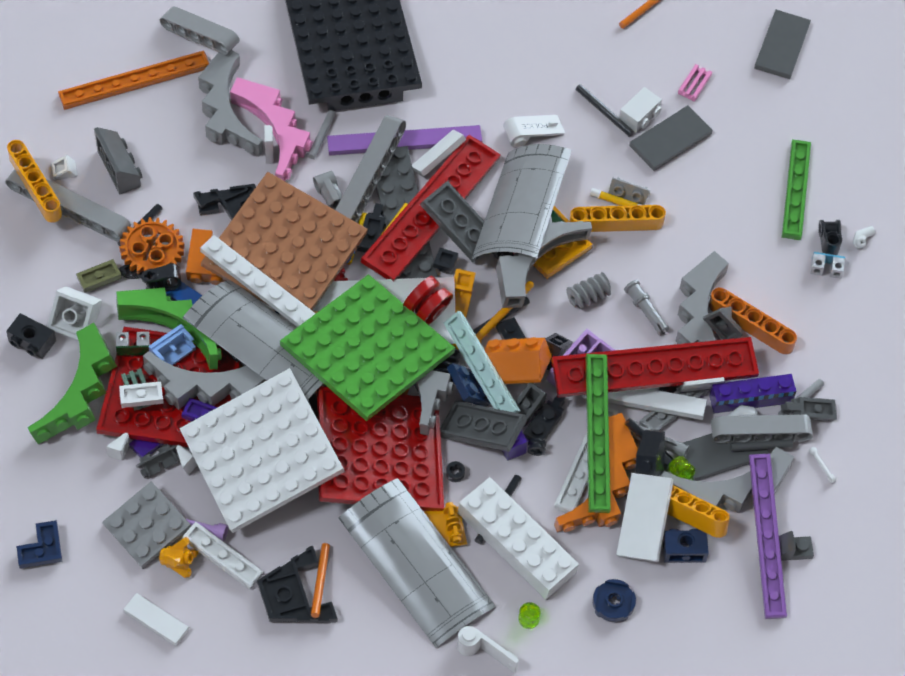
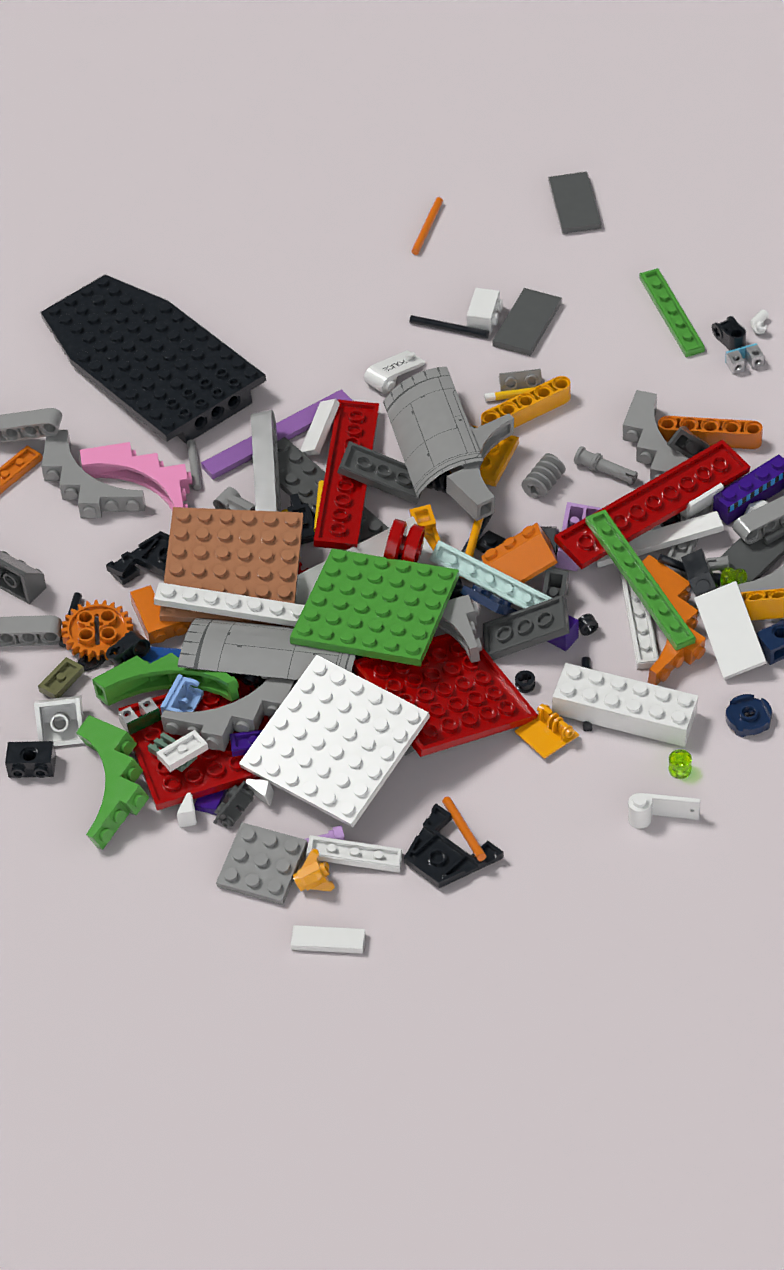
camera: 20 degrees left, 10 degrees down
(45, 551) = (176, 932): dark blue plate -> none
(269, 144) = (152, 491): white tile -> none
(416, 561) = (543, 769): light grey sticker -> none
(445, 260) = (390, 511): black tile -> none
(545, 419) = (578, 596): black hinge -> none
(696, 69) = (517, 257): bright pink tile -> none

